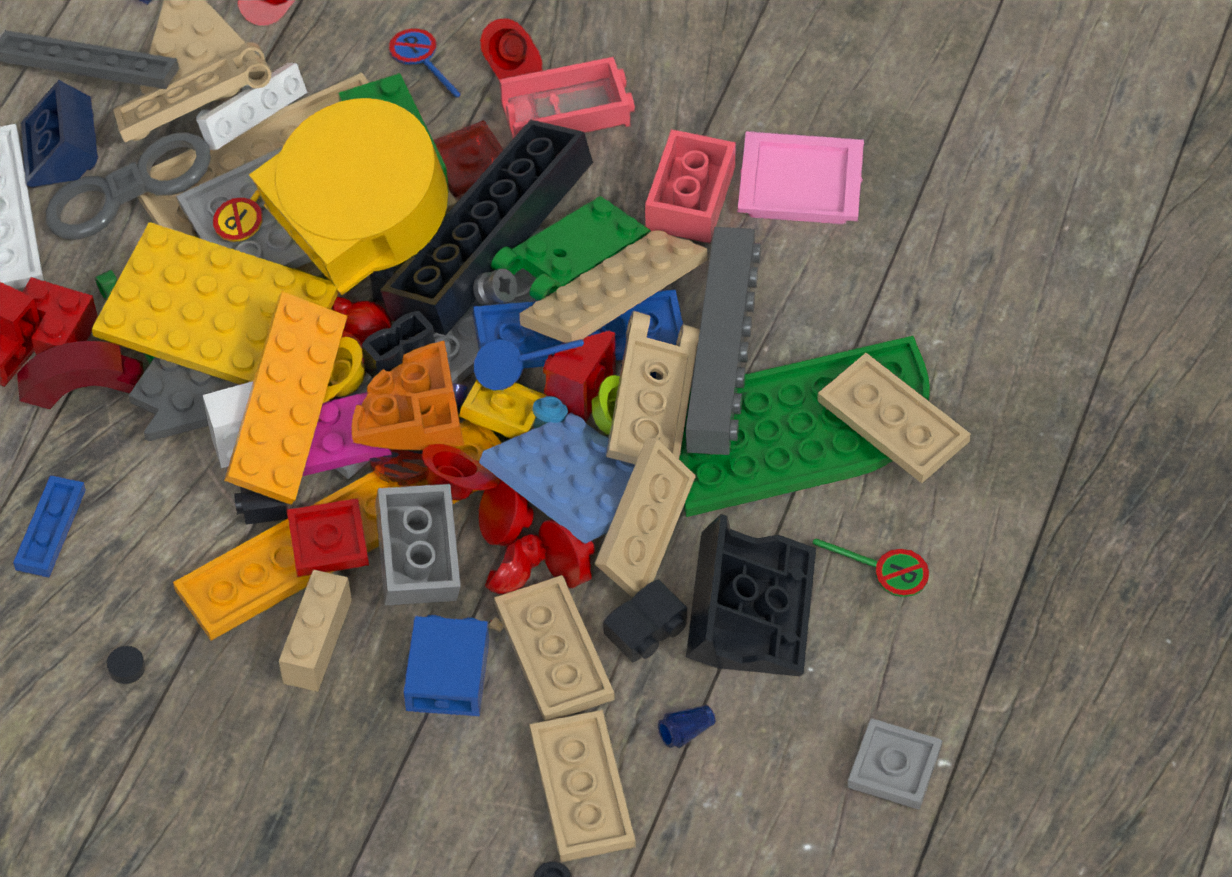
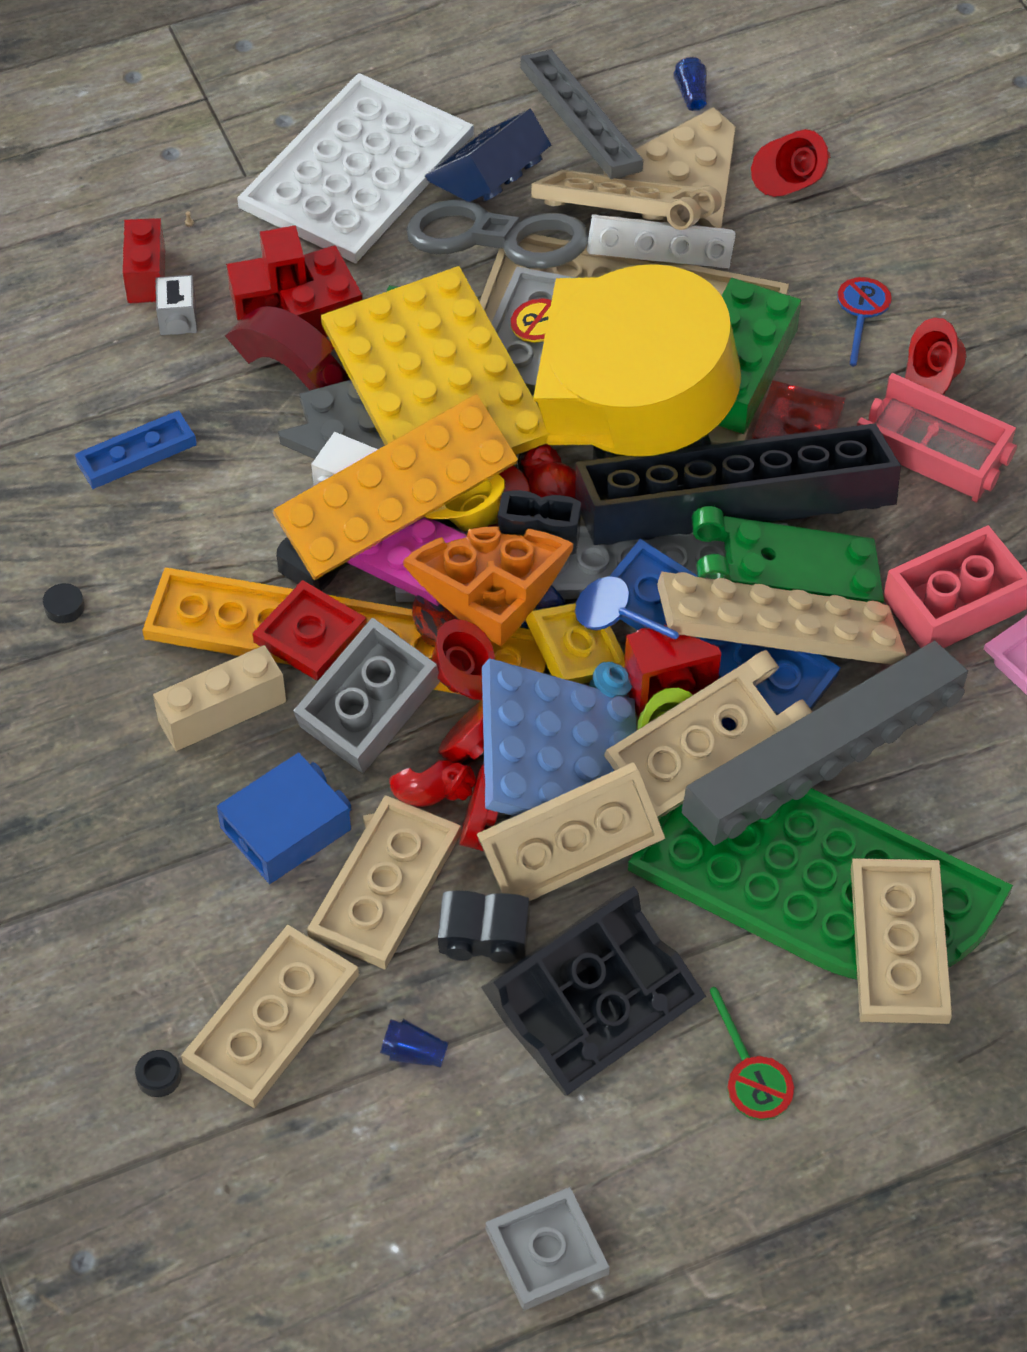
camera: 45 degrees right, 0 degrees up
(495, 287) = (667, 530): flat silver wheel -> none

